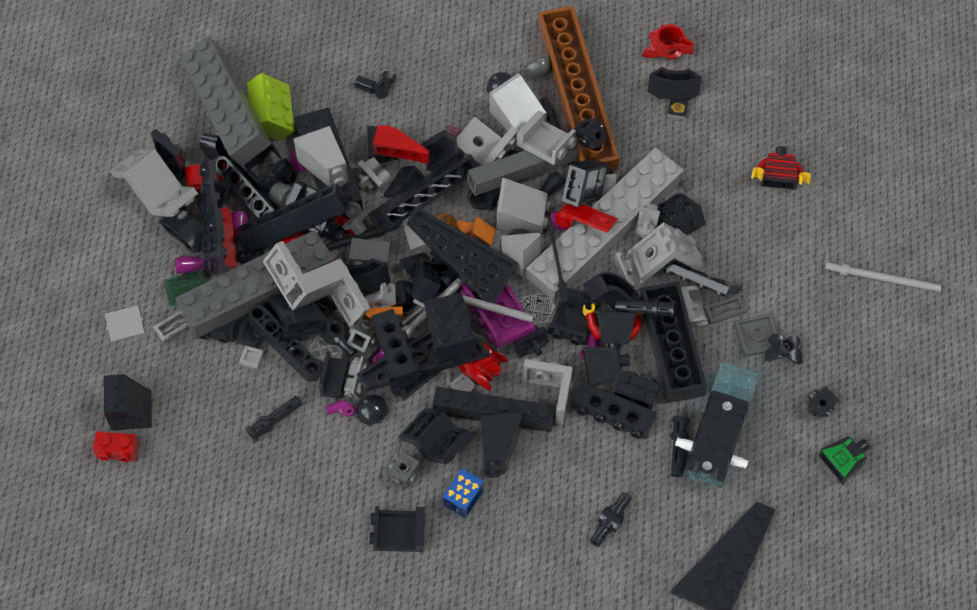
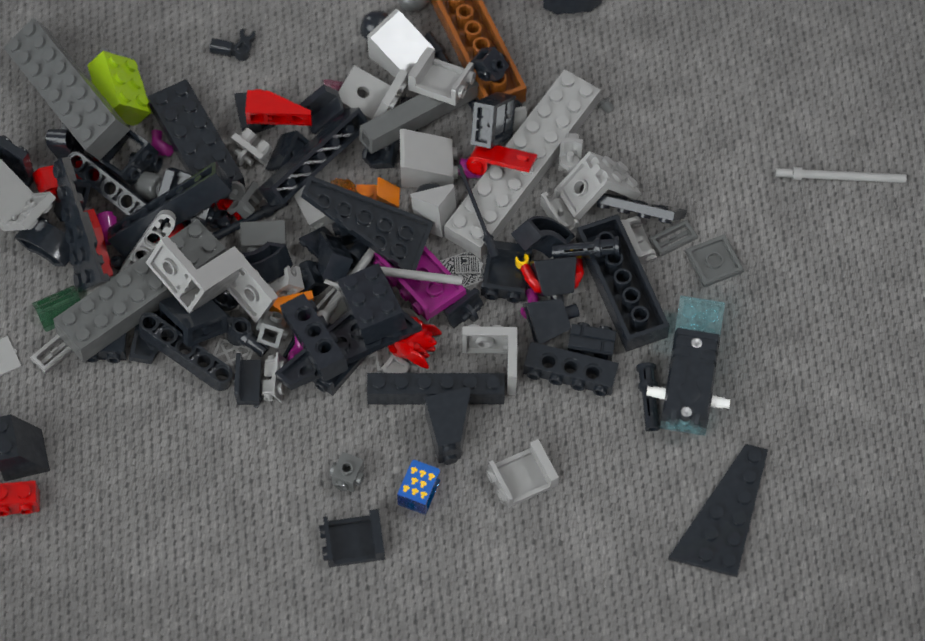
camera: 10 degrees left, 0 degrees up
(188, 264) = (56, 281): magenta cone -> none
(251, 357) = (149, 374): light grey tile -> none
(264, 422) = (179, 443): black pin -> none
(266, 245) = (144, 244): none -> light grey beam
(322, 156) = (191, 135): light grey slope -> none
(342, 407) = (262, 413): magenta arm -> none
(372, 409) = (298, 411): black hair -> none
(435, 436) = (376, 428): black bracket -> none
(553, 183) = (456, 126): black cone -> none
(556, 497) = (523, 475): none -> light grey panel
(610, 519) = (588, 489): black pin -> none
(677, 109) = (580, 23): tile -> none
(681, 213) = (606, 139): black bracket -> none
(780, 171) = (708, 75): torso -> none
(784, 347) = (746, 270): black animal -> none
(827, 398) = (805, 320): black brick -> none
(844, 457) = (833, 380): torso -> none

